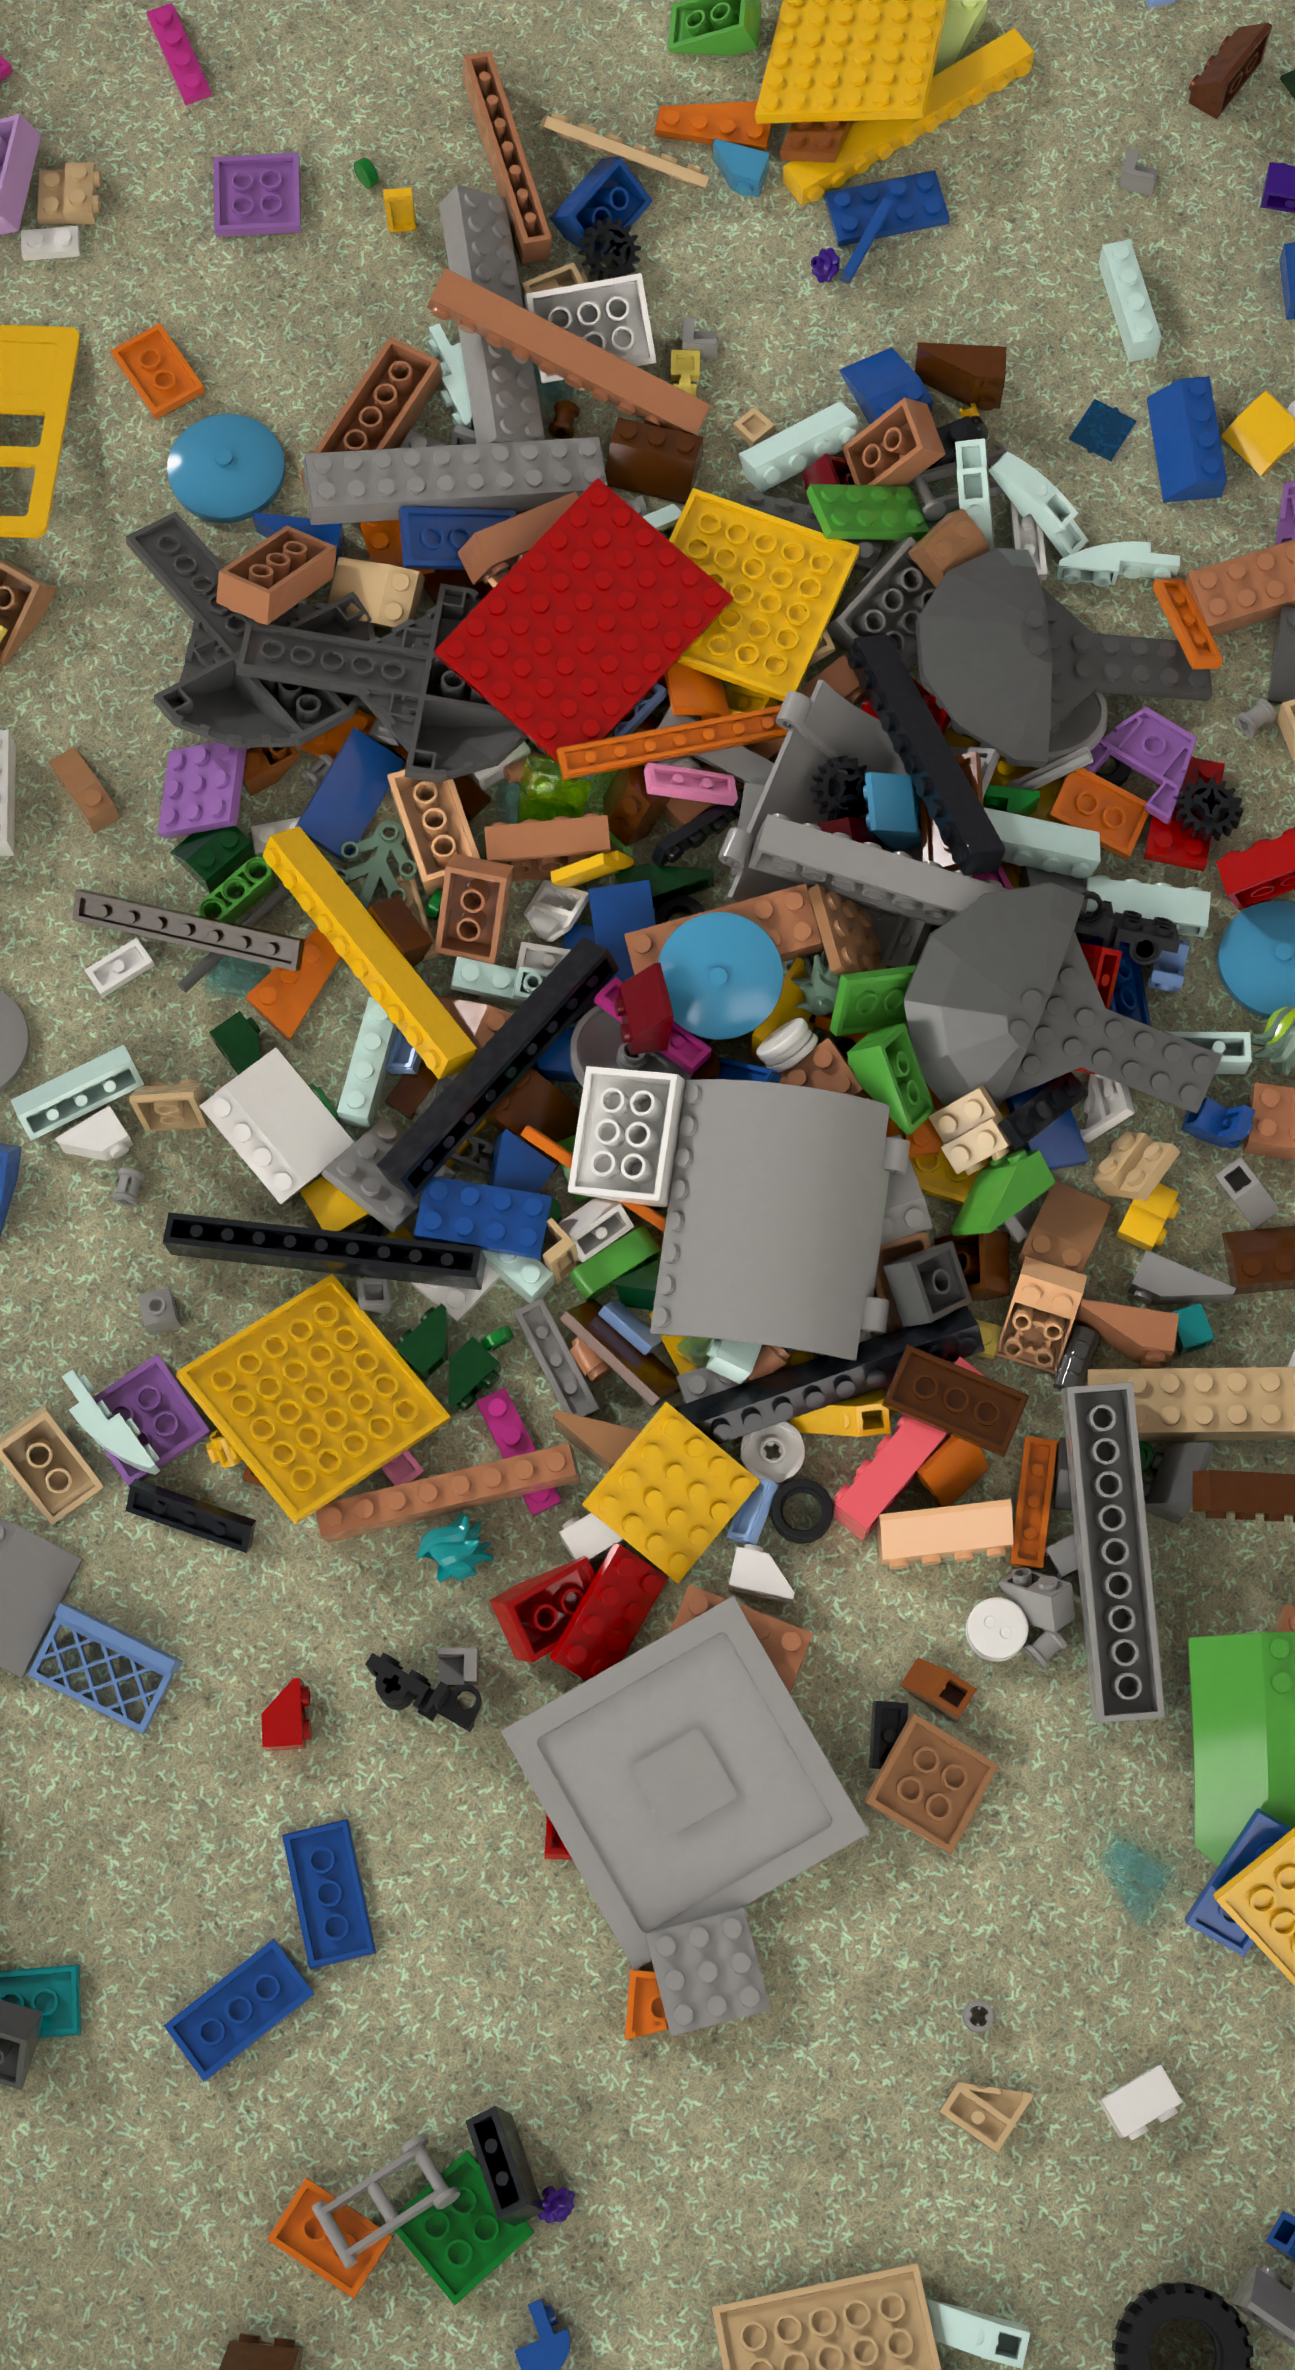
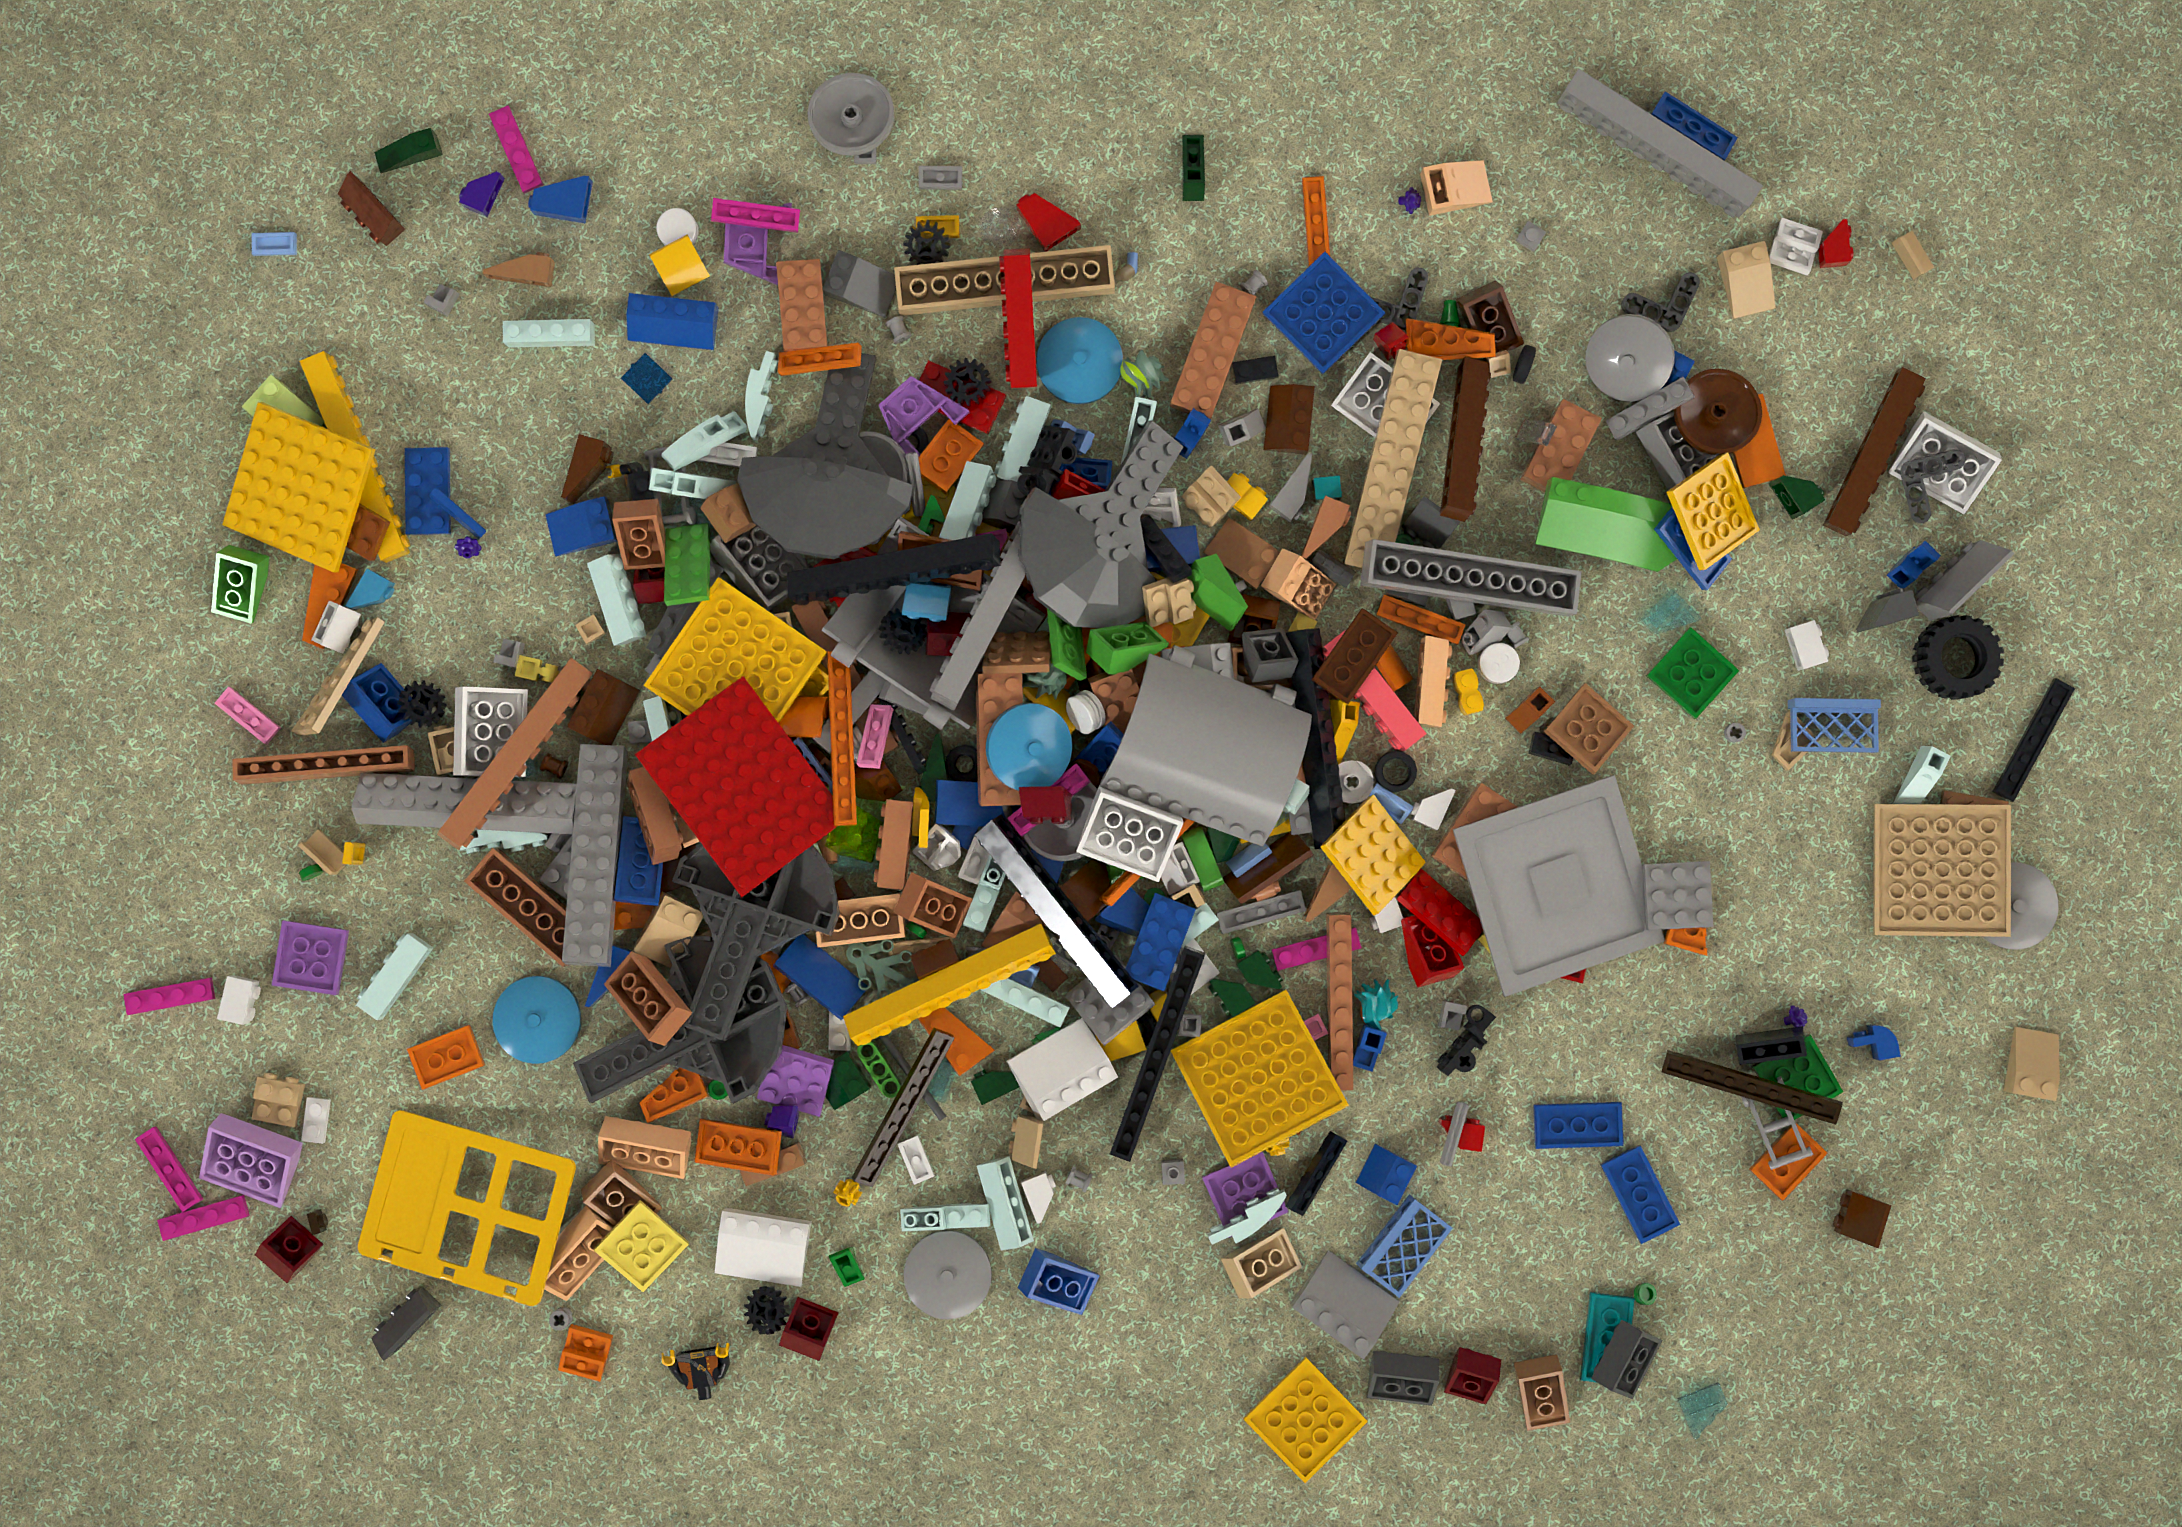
camera: 80 degrees left, 15 degrees up
(46, 1019) = (945, 1216): none -> light aqua slope
(59, 887) = (847, 1192): none -> yellow gear
(80, 625) = (644, 1147): none -> light nougat slope
(88, 2049) = (1645, 1294): none -> green tile
(98, 736) = (738, 1146): none -> orange tile
(143, 786) = (783, 1119): none -> dark purple slope
(153, 646) = (673, 1094): none -> orange wing
(187, 125) = (238, 1000): none -> white brick
(206, 1618) = (1386, 1174): none -> blue slope
(251, 291) = (394, 975): none -> light aqua brick
(281, 1697) = (1454, 1134): none -> light grey axle
(391, 1551) = (1368, 1047): none -> blue brick
(392, 175) = (324, 852): none -> tan panel
(433, 2149) = (1752, 1087): none -> dark brown plate
(550, 66) = (247, 715): none -> bright pink plate
(685, 136) = (336, 627): none -> white brick
(952, 1588) = (1469, 698): none -> yellow brick
(1053, 1929) = (1692, 673): none -> green plate
(1056, 2166) = (1830, 706): none -> medium blue fence
(1205, 258) = (527, 269): none -> medium nougat slope
(1226, 2217) = (1889, 609): none -> dark grey slope

